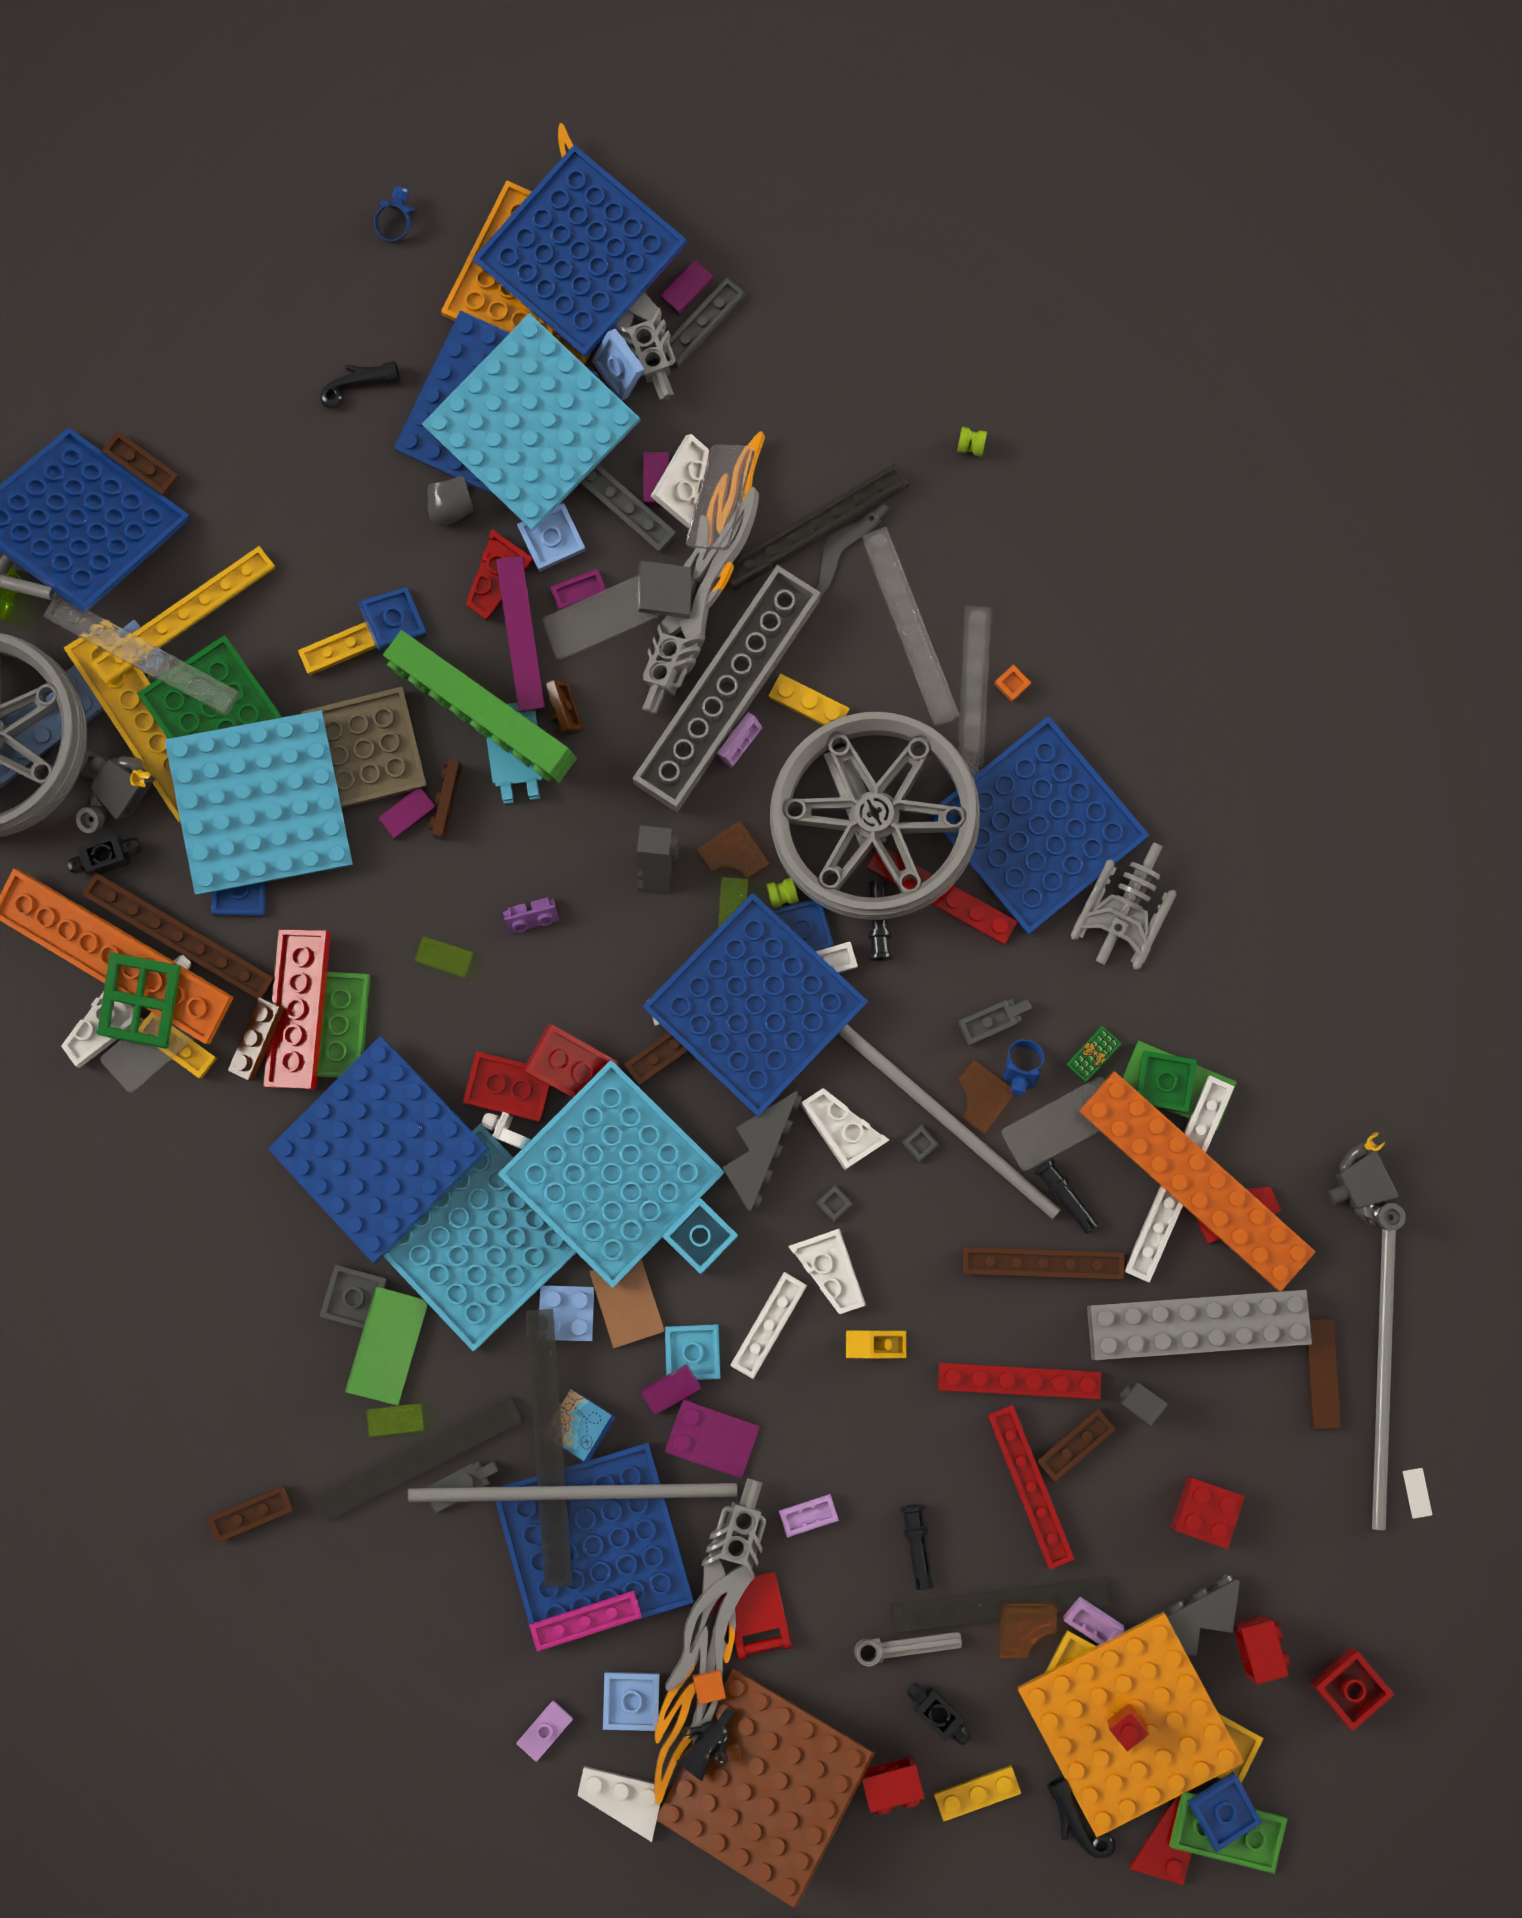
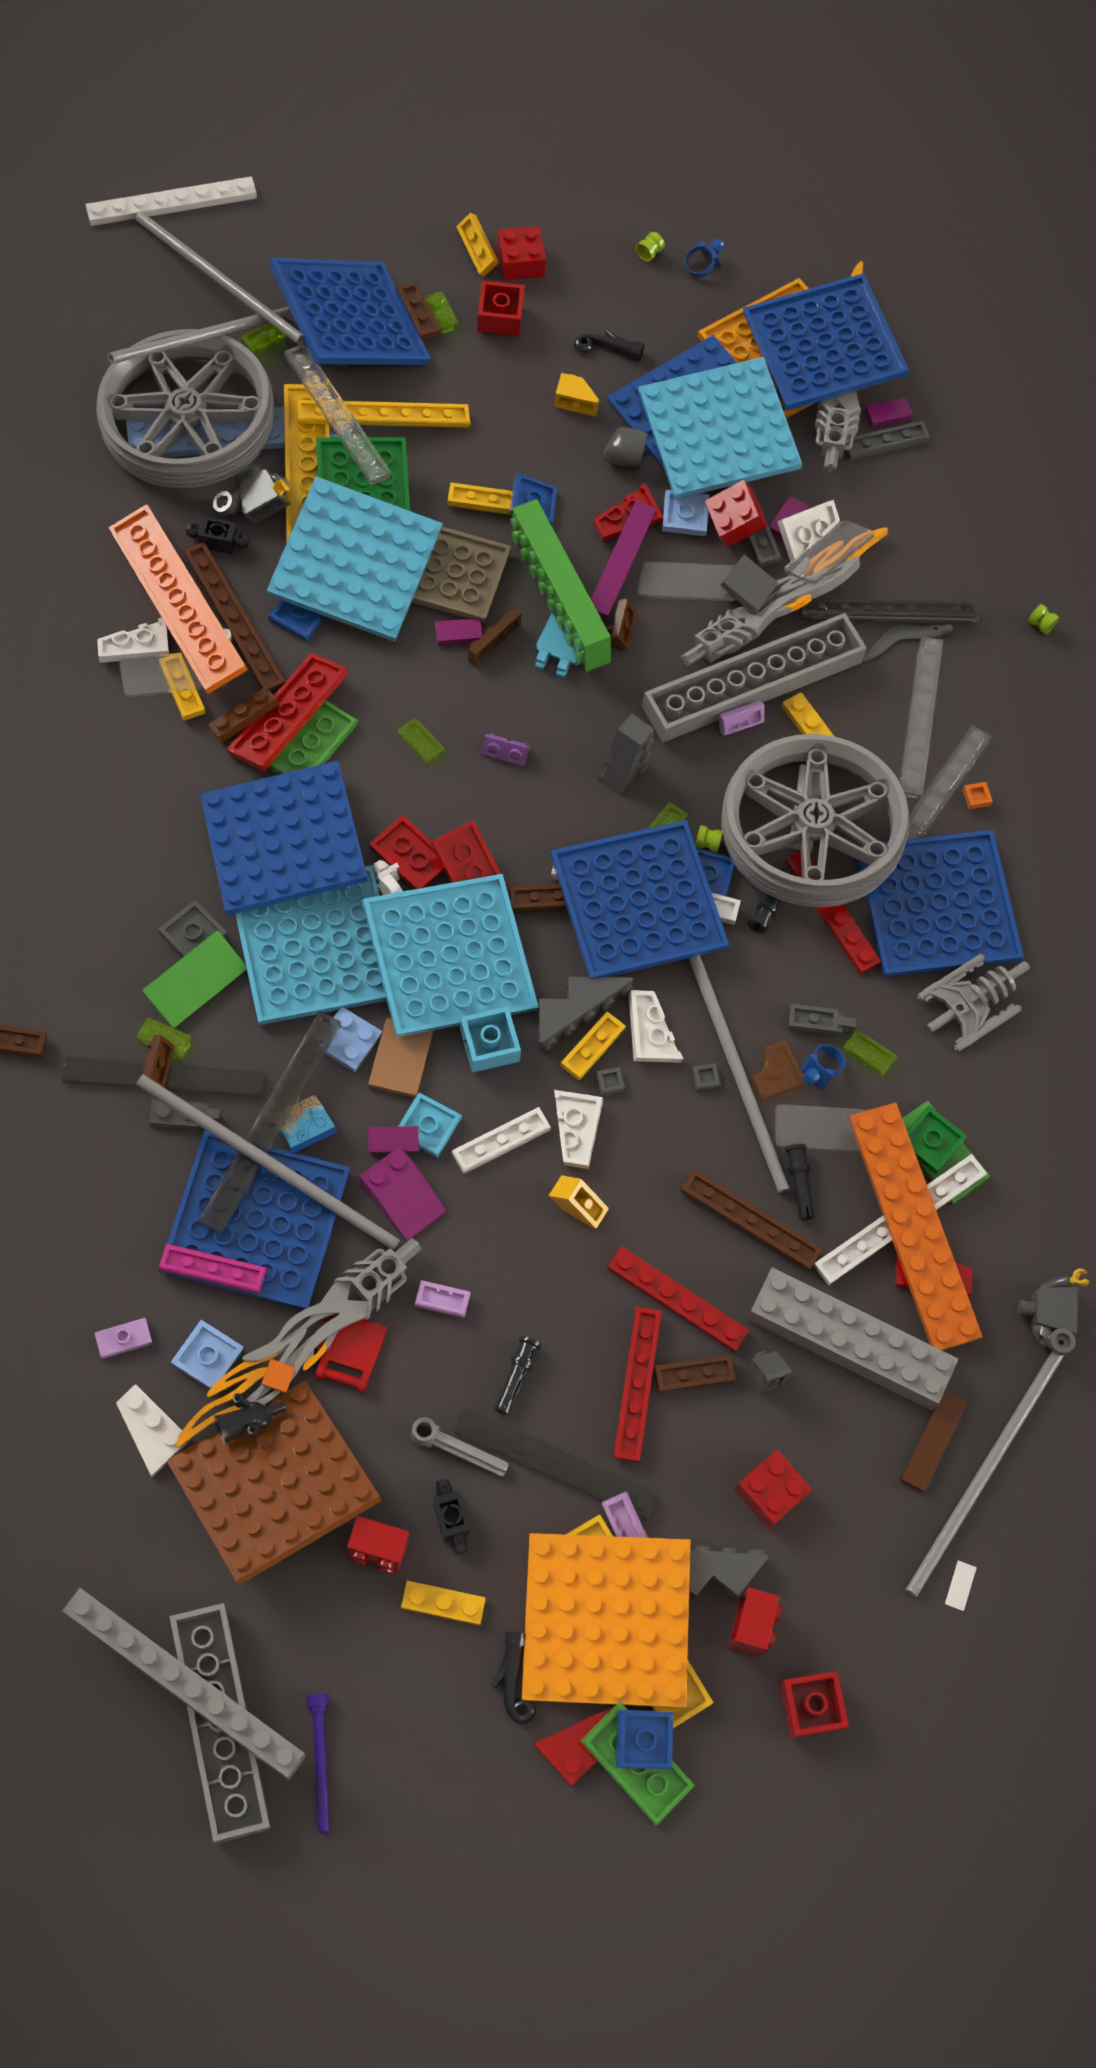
camera: 20 degrees right, 15 degrees down
(138, 1000) = (194, 648): green window -> none
(152, 344) = (477, 244): none -> yellow plate
(164, 449) = (442, 312): none -> clear neon green plate
(204, 328) = (521, 253): none -> red brick
(224, 411) = (500, 308): none -> red brick
(331, 235) = (650, 246): none -> lime wheel
(360, 467) = (575, 395): none -> yellow slope
(408, 1454) = (158, 1059): none -> reddish brown plate
(577, 589) = (679, 554): magenta tile -> none
(604, 512) = (736, 513): none -> brick
(617, 364) = (807, 426): light blue plate -> none
(733, 850) = (689, 791): clear orange tile -> none
(798, 1178) = (593, 1046): none -> yellow plate
(1024, 1626) = (564, 1488): clear orange tile -> none
(1057, 1022) = (869, 1052): none -> clear neon green tile
(1093, 1054) = (885, 1091): tile -> none
(1128, 1727) = (604, 1610): red brick -> none

